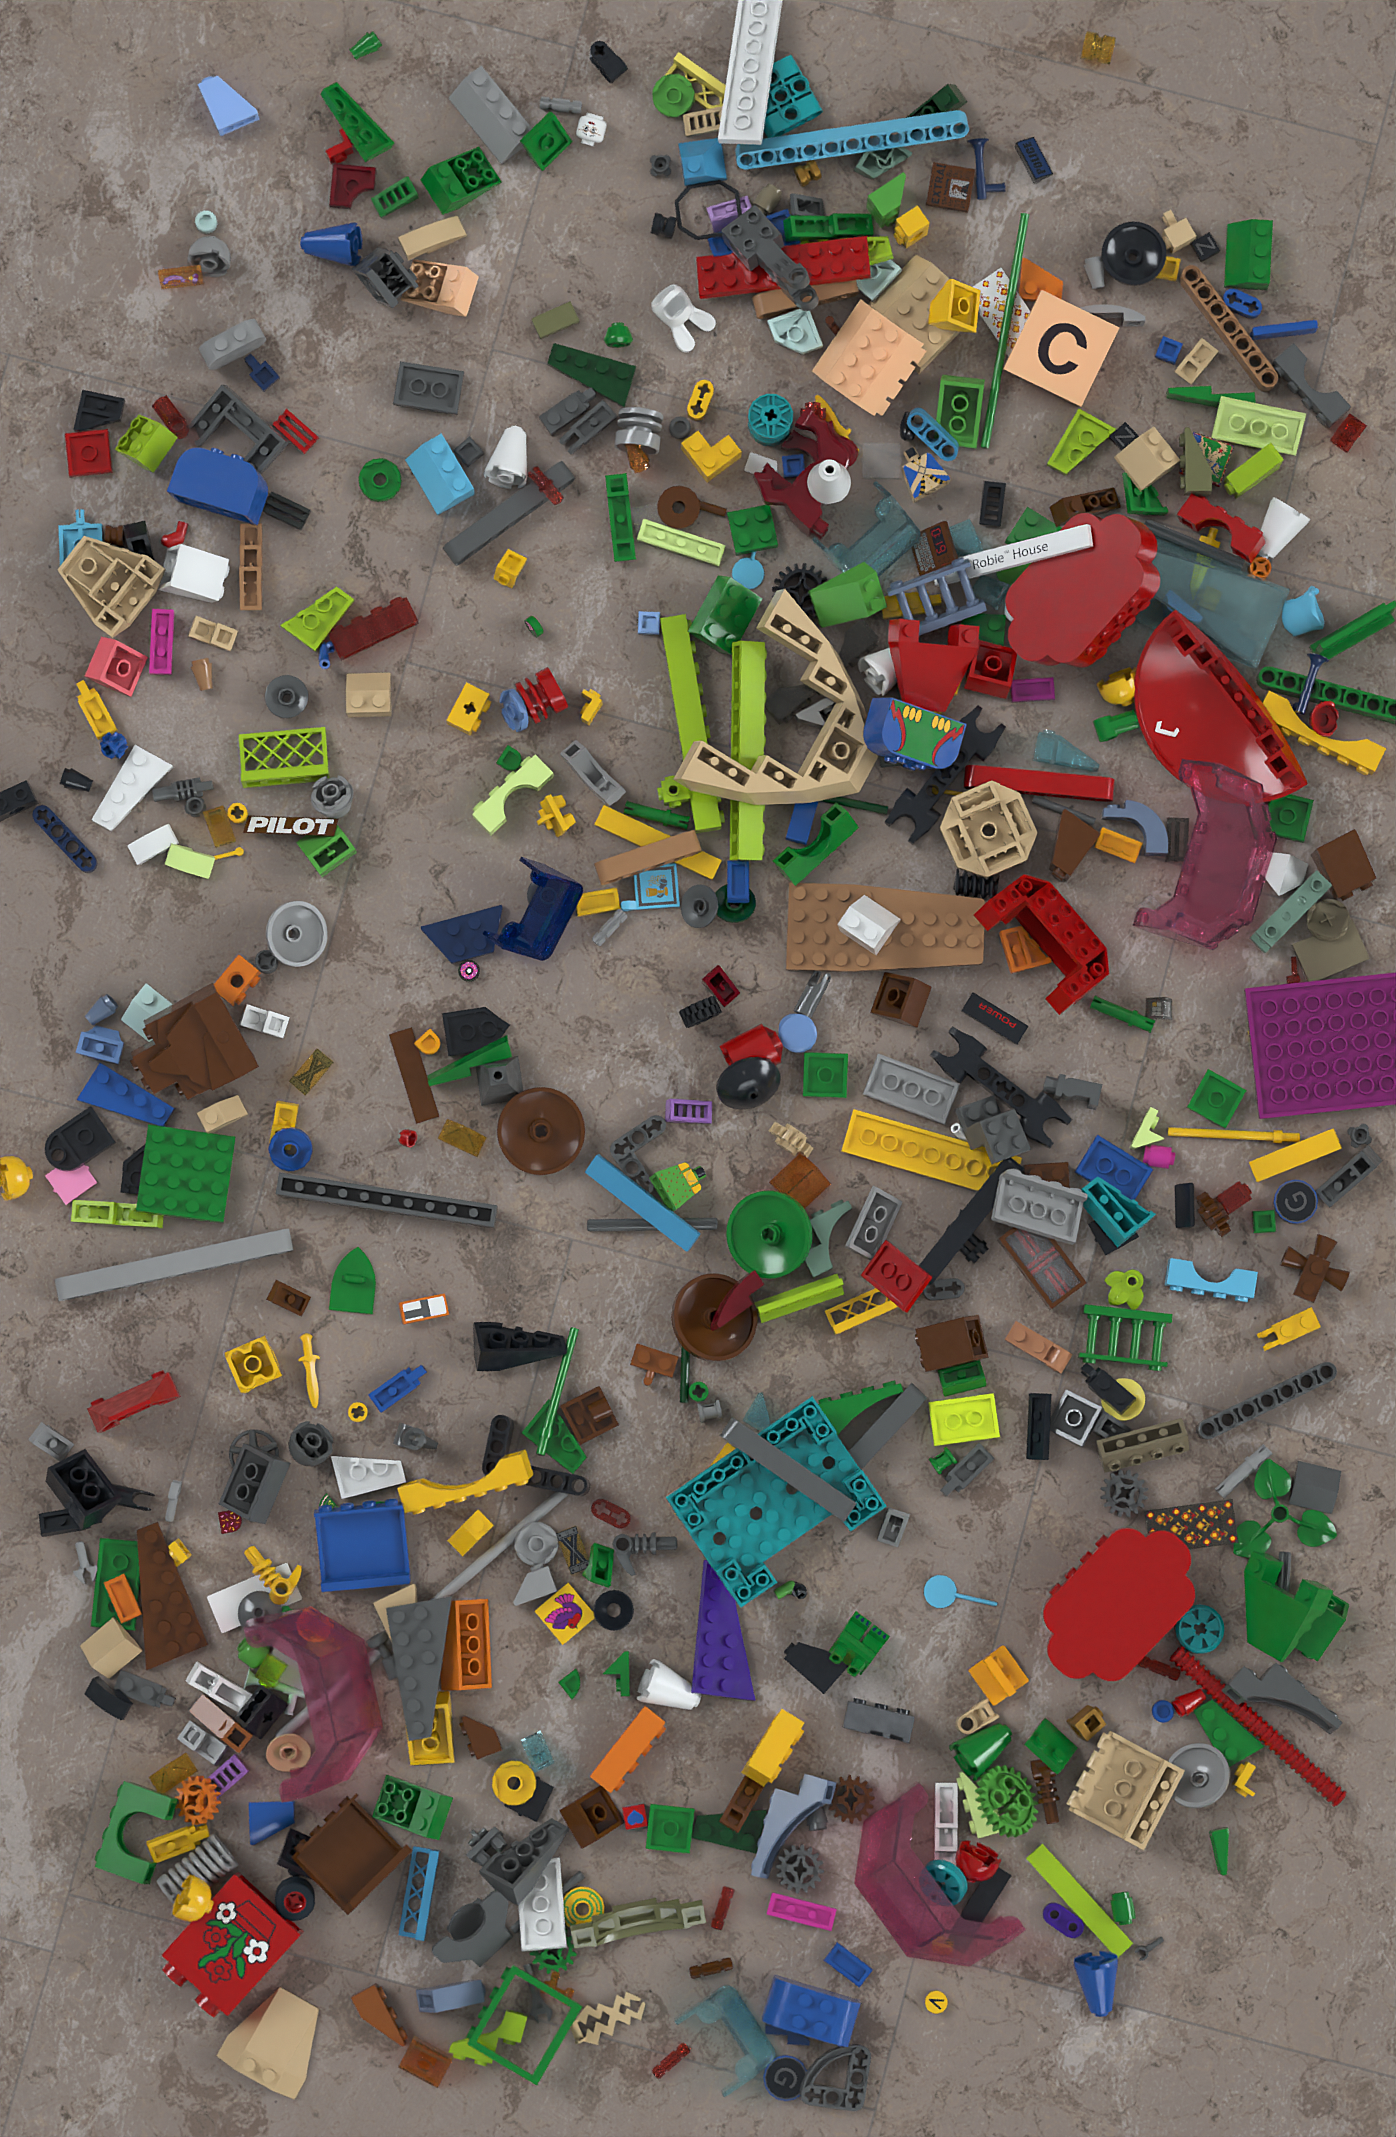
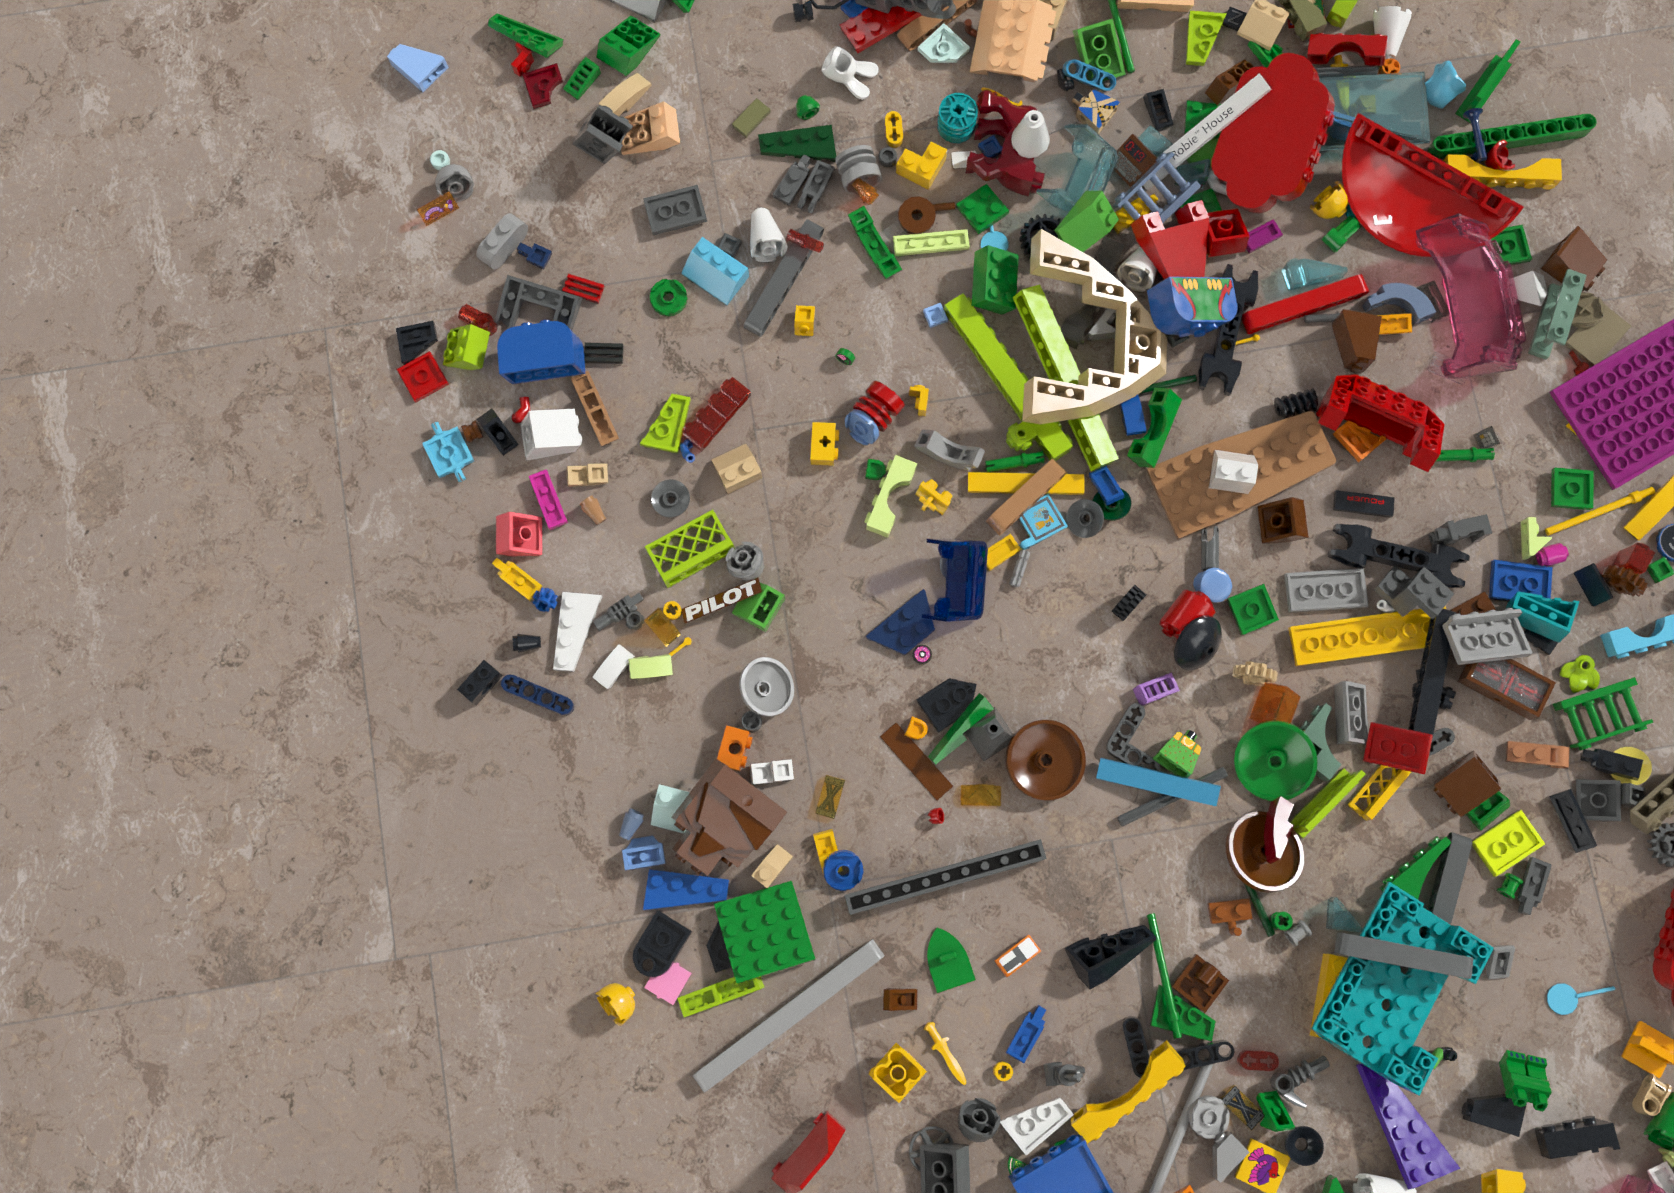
camera: 20 degrees left, 5 degrees down
(110, 582) = (485, 468): tan wedge -> none
(334, 243) = (549, 131): blue cone -> none
(470, 1532) = (1149, 1133): yellow slope -> none
(720, 986) = (1132, 574): dark red slope -> none
(993, 807) = (1290, 337): tan piece -> none

